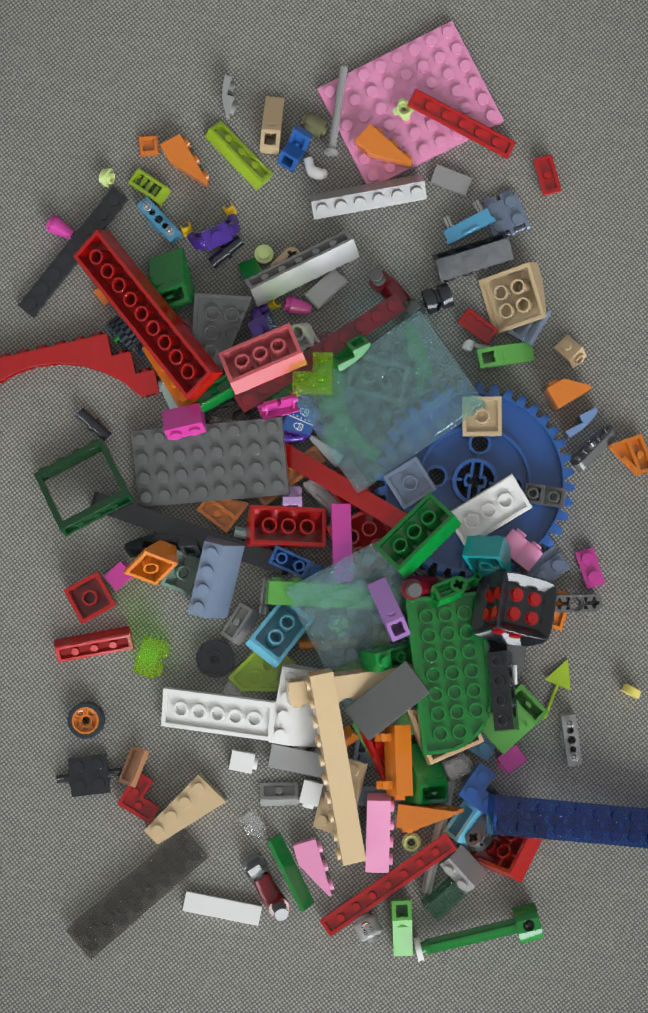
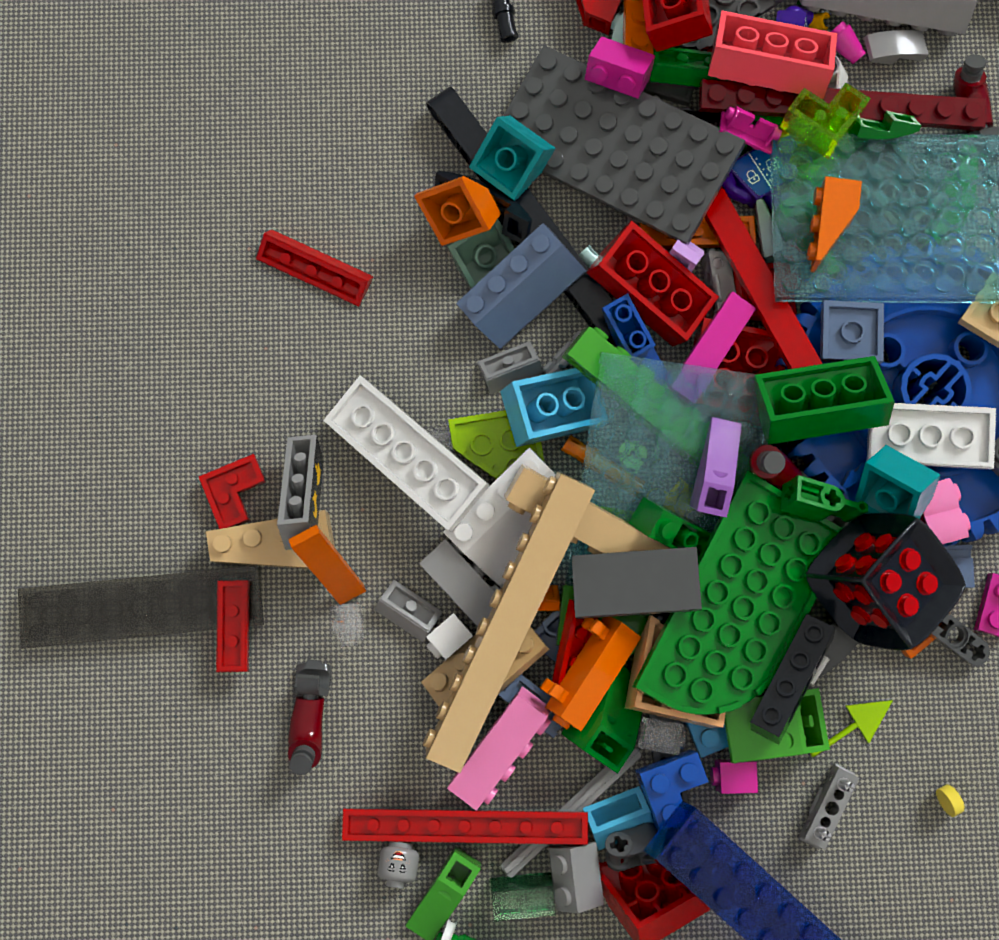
camera: 30 degrees right, 5 degrees down
(82, 729) = (231, 335): wheel -> none
(89, 775) = (191, 419): black plate -> none
(90, 597) = (351, 204): red brick -> none
(97, 510) = (431, 100): dark green window -> none
(116, 576) = (403, 206): dark pink brick -> none
(133, 766) = (253, 445): nougat tile -> none
(151, 656) = (373, 324): clear neon green brick -> none
(160, 511) = (511, 156): none -> teal slope
(179, 775) = (300, 487): none -> light grey brick
(193, 868) = (232, 626): none -> red tile
(207, 665) = (444, 372): black plate -> none
(222, 803) = (327, 564): none -> orange tile
(222, 908) = (233, 704): white tile -> none
(223, 512) = (585, 218): orange wing -> none
(243, 761) = (393, 536): white brick -> none
(290, 872) = (351, 720): green slope -> none
(311, 862) = (387, 724): bright pink slope -> none
(357, 426) = (836, 207): none -> orange slope
(411, 848) = (536, 801): yellowish green plate -> none
(415, 816) = (565, 762): orange slope -> none

